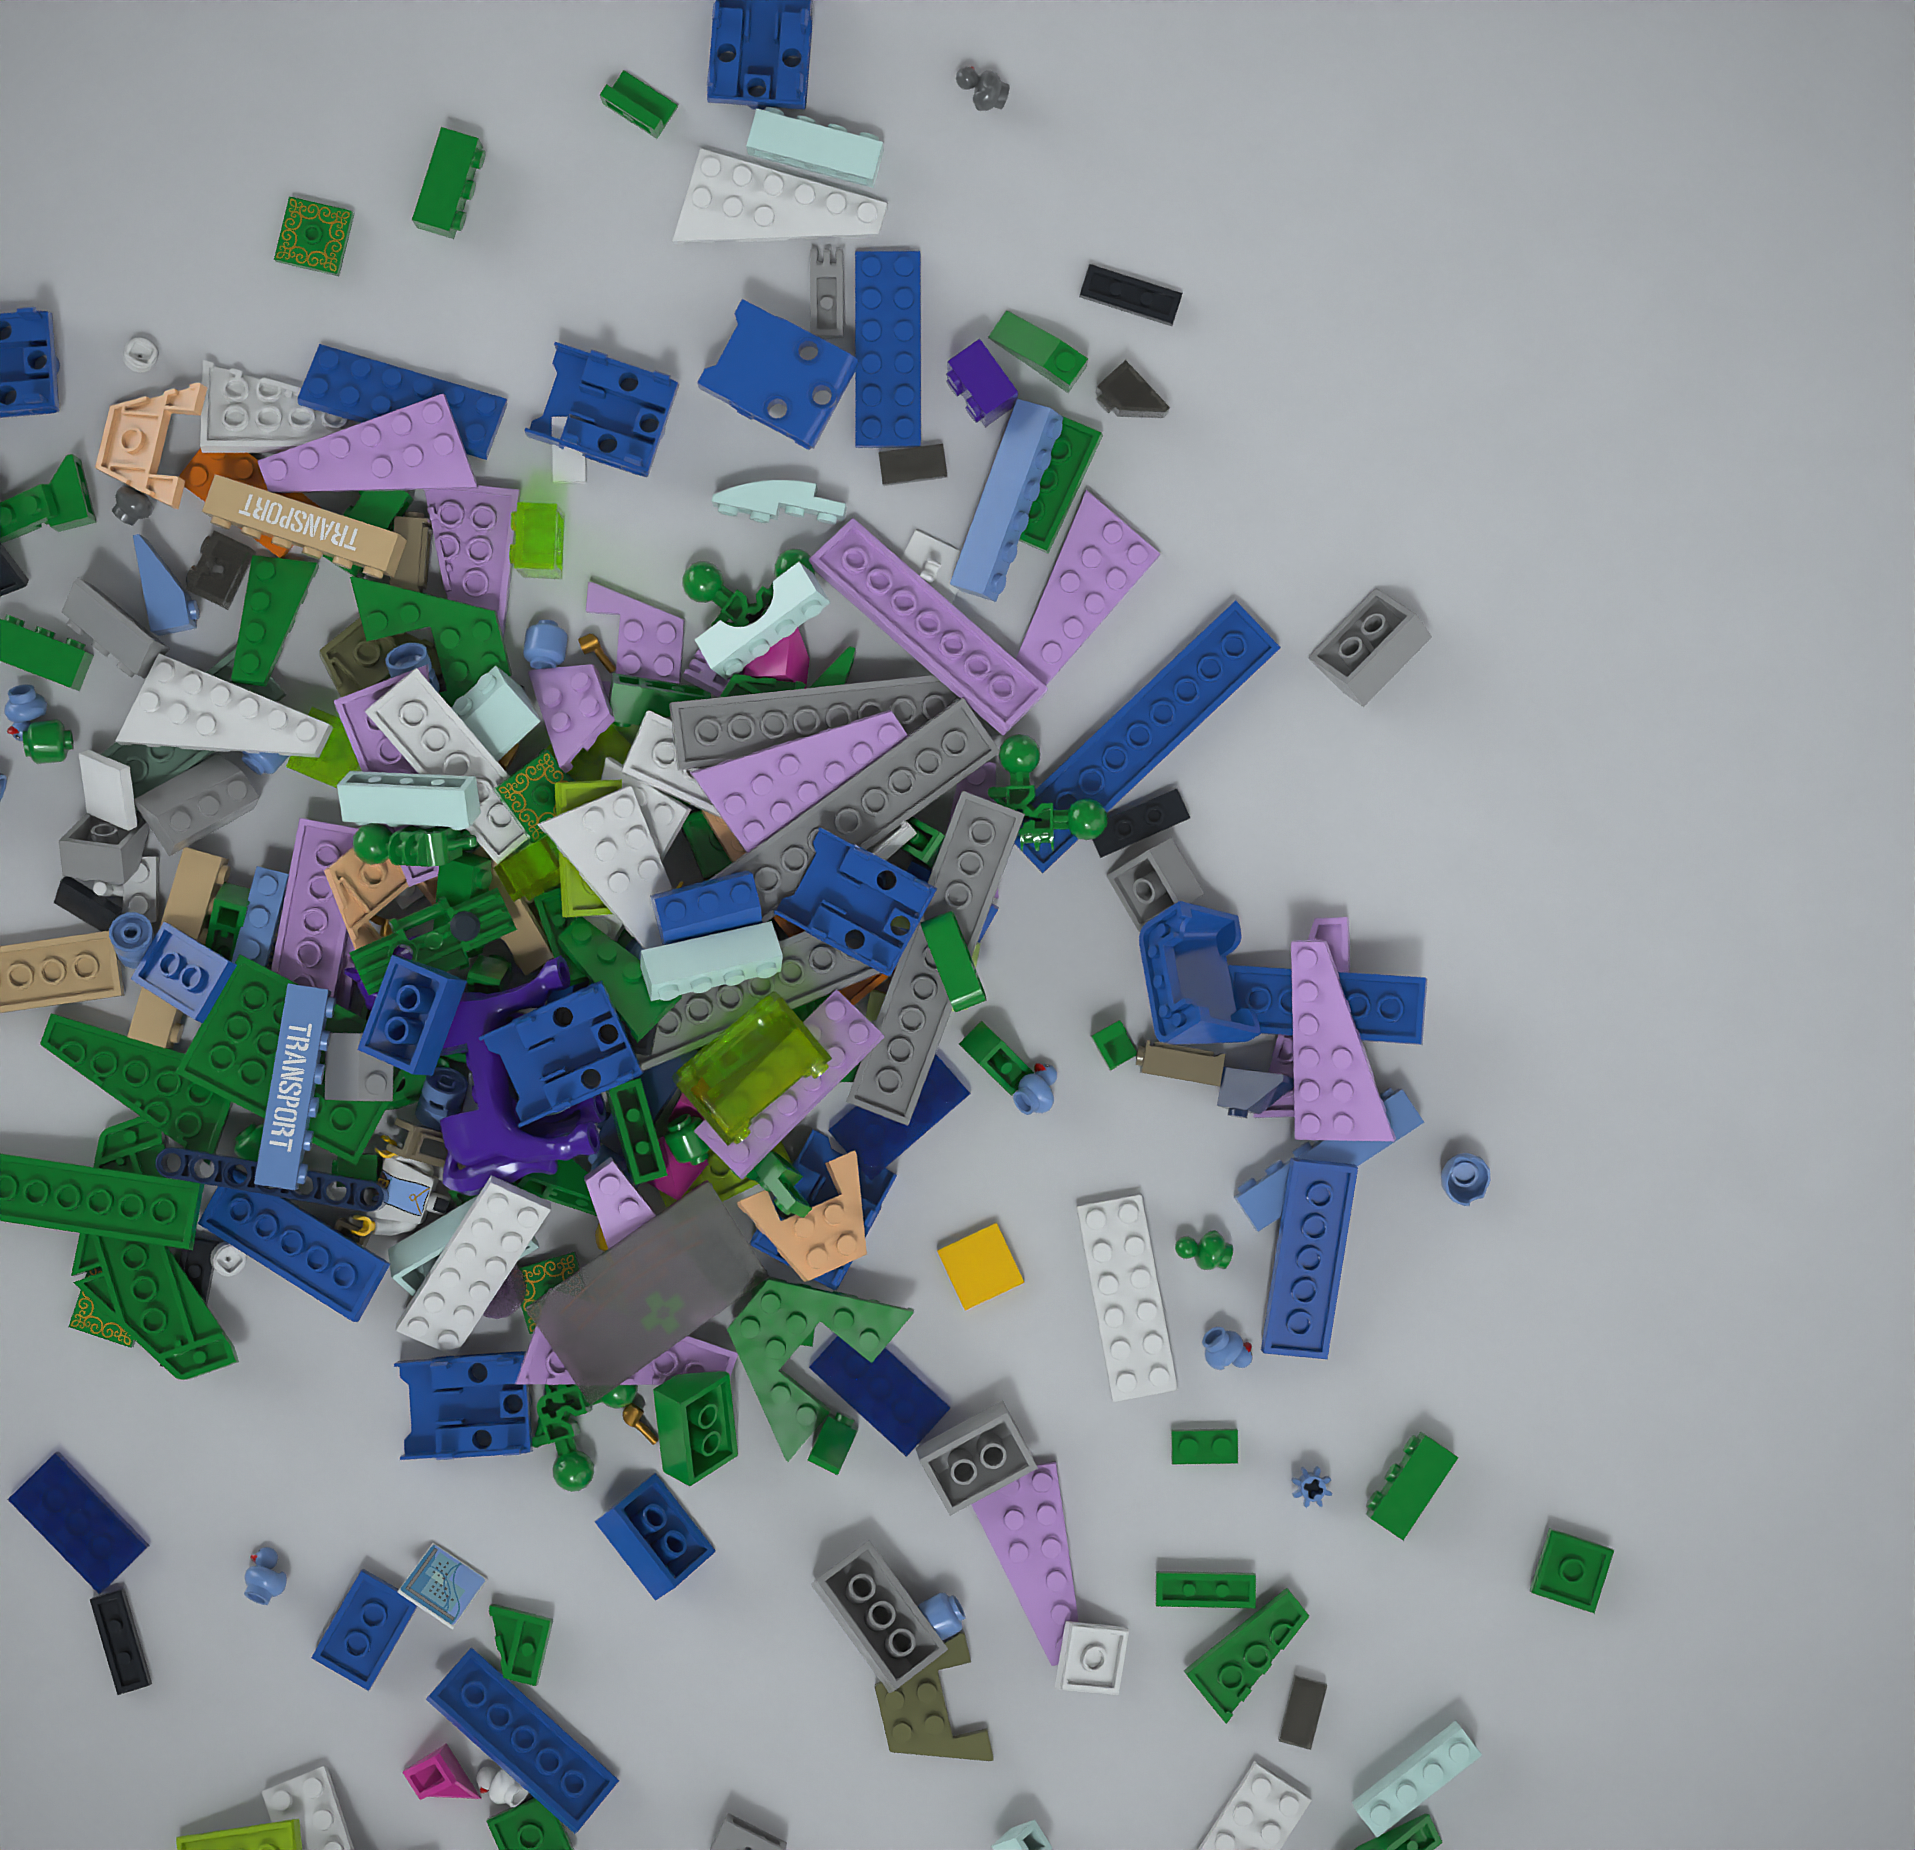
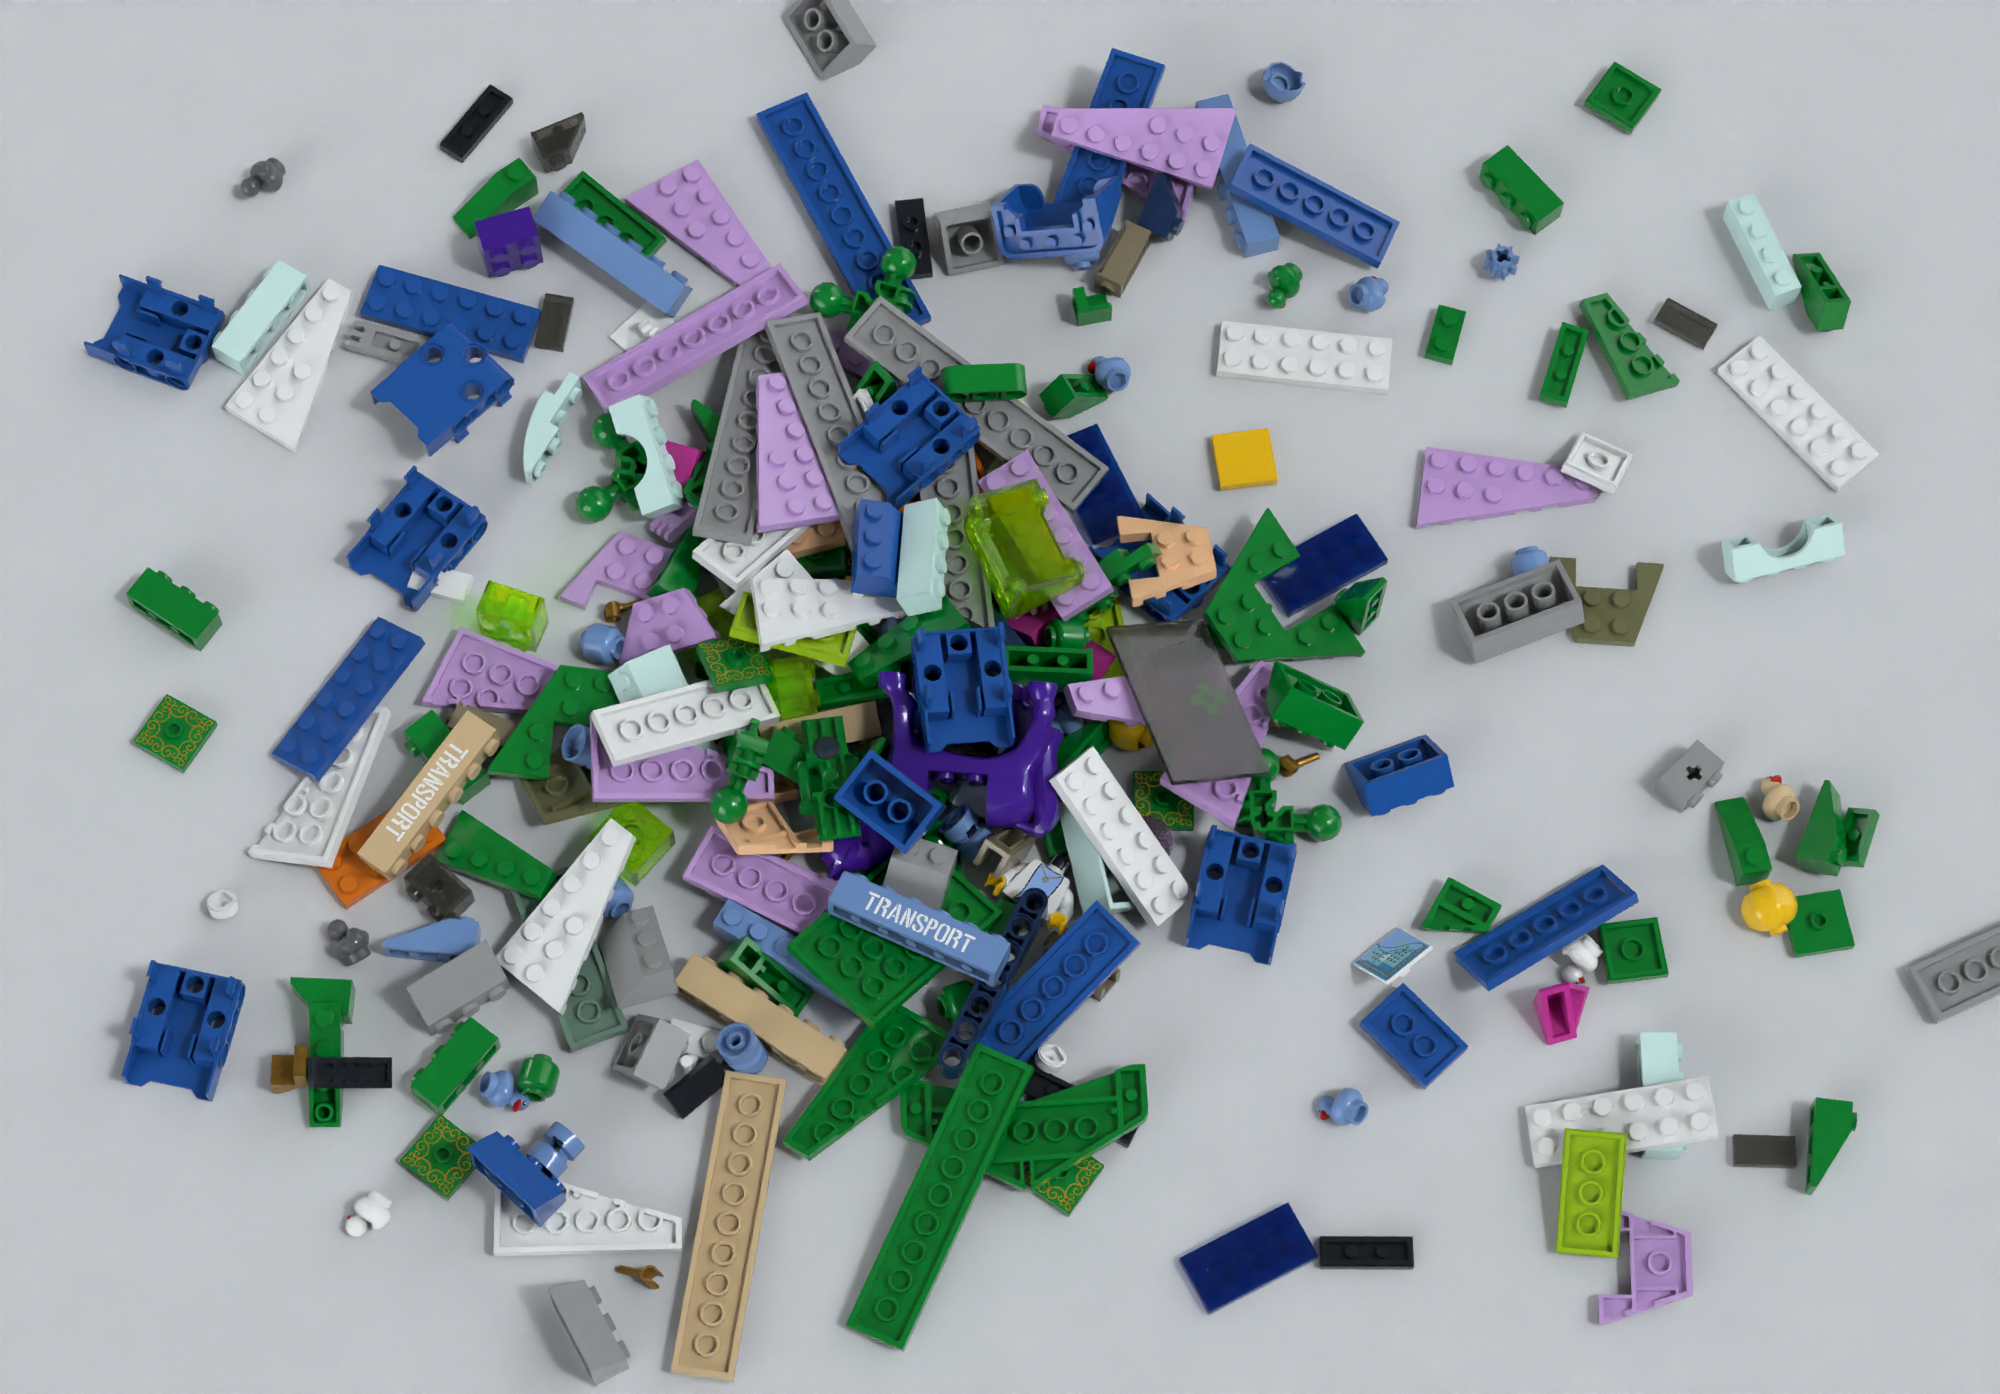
camera: 75 degrees left, 20 degrees down
(108, 790) = (601, 1029): white tile -> none
(136, 439) = (298, 924): light nougat wing -> none
(183, 972) = (786, 998): plate -> none
(388, 453) = (392, 708): lavender wing -> none
(409, 799) = (702, 755): light aqua brick -> none
(638, 104) = (168, 444): green panel -> none
(976, 1458) = (1403, 500): light grey slope -> none

